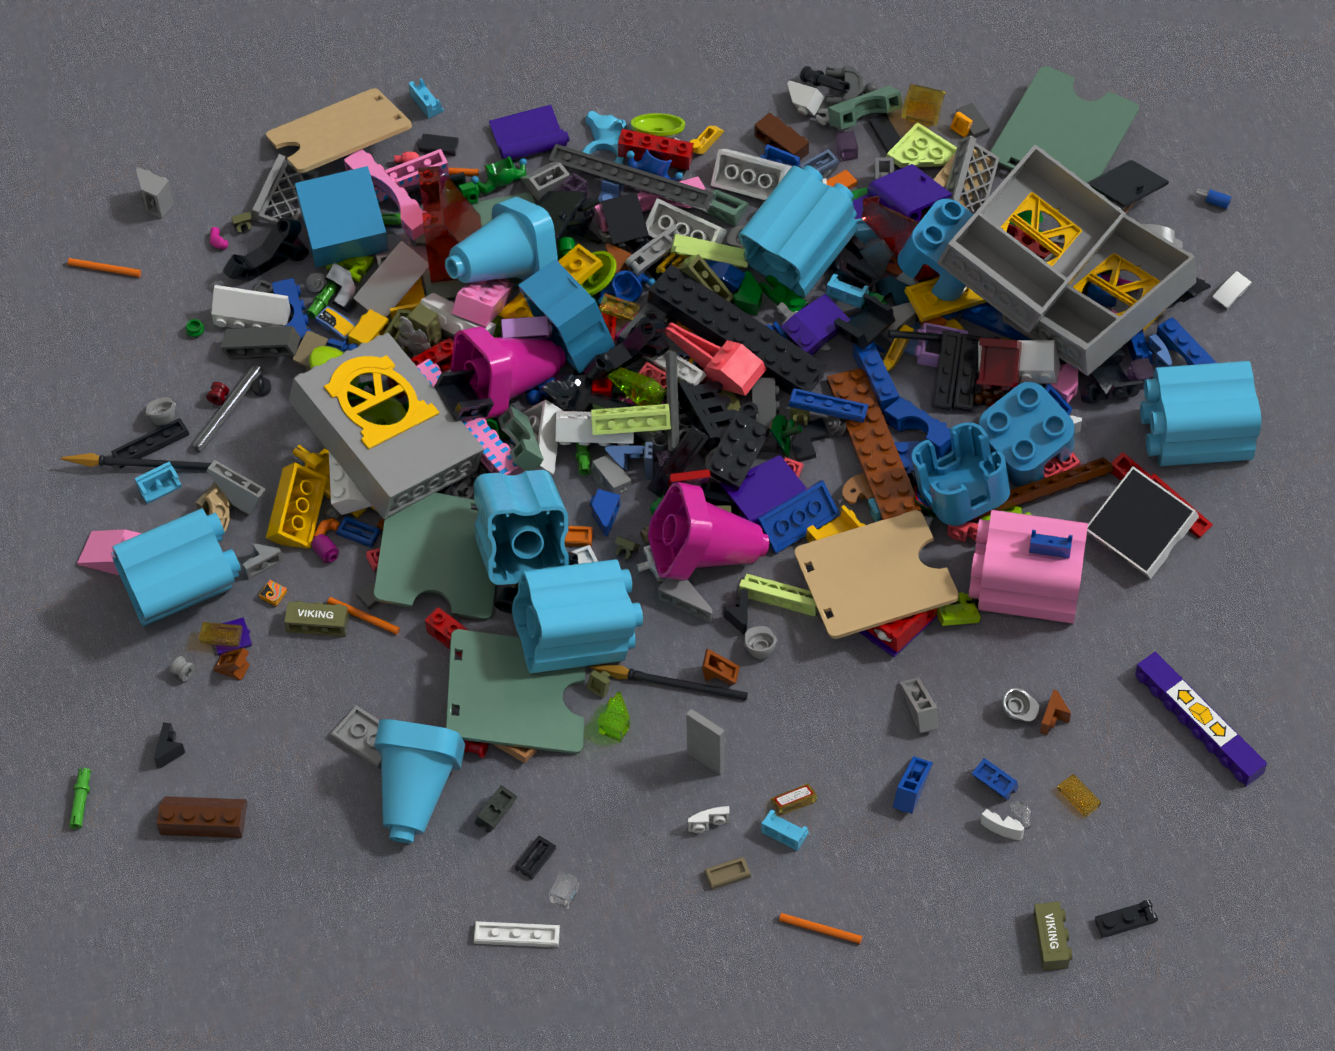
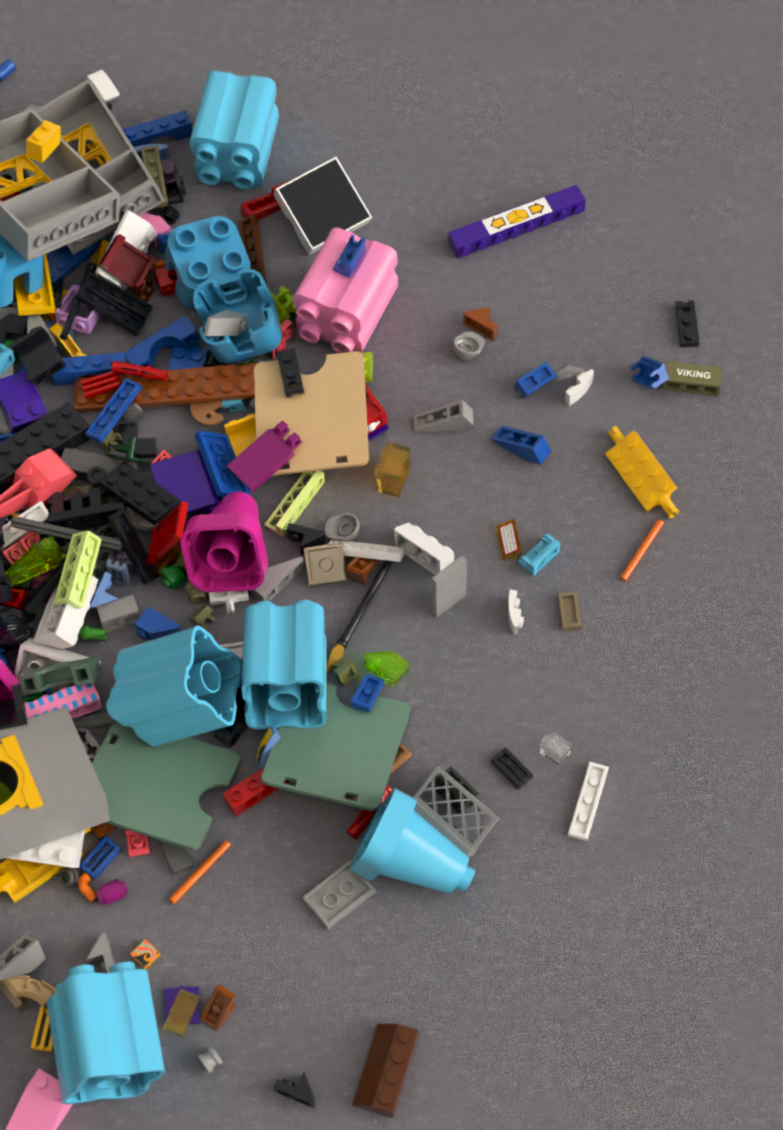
camera: 75 degrees left, 5 degrees up
(296, 506) = (55, 909): yellow slope -> none
(316, 618) = (192, 915): olive brick -> none
(458, 802) = (441, 824): none -> light grey fence
(502, 631) = (268, 741): none -> medium blue slope
(579, 706) = (367, 693): none -> blue plate
(713, 634) = (325, 564): none -> dark tan tile
(738, 668) = (371, 551): none -> white tile
(756, 718) = (423, 548): none -> white slope
(812, 546) = (264, 456): none -> magenta tile
(838, 668) = (393, 469): none -> clear yellow brick
(861, 382) = (100, 382): none -> red tile
(878, 419) = (159, 374): none -> red pin
(913, 906) = (641, 471): none -> yellow plate
(914, 541) = (290, 372): none -> black plate
(943, 462) = (226, 324): none -> light grey slope
(952, 321) = (59, 292): none -> black bar
(1037, 889) = (651, 372): none -> blue hinge
(1077, 229) = (43, 141): none -> yellow brick
(1079, 795) = (563, 326): clear yellow plate -> none
(1125, 362) = (152, 161): none -> olive tile

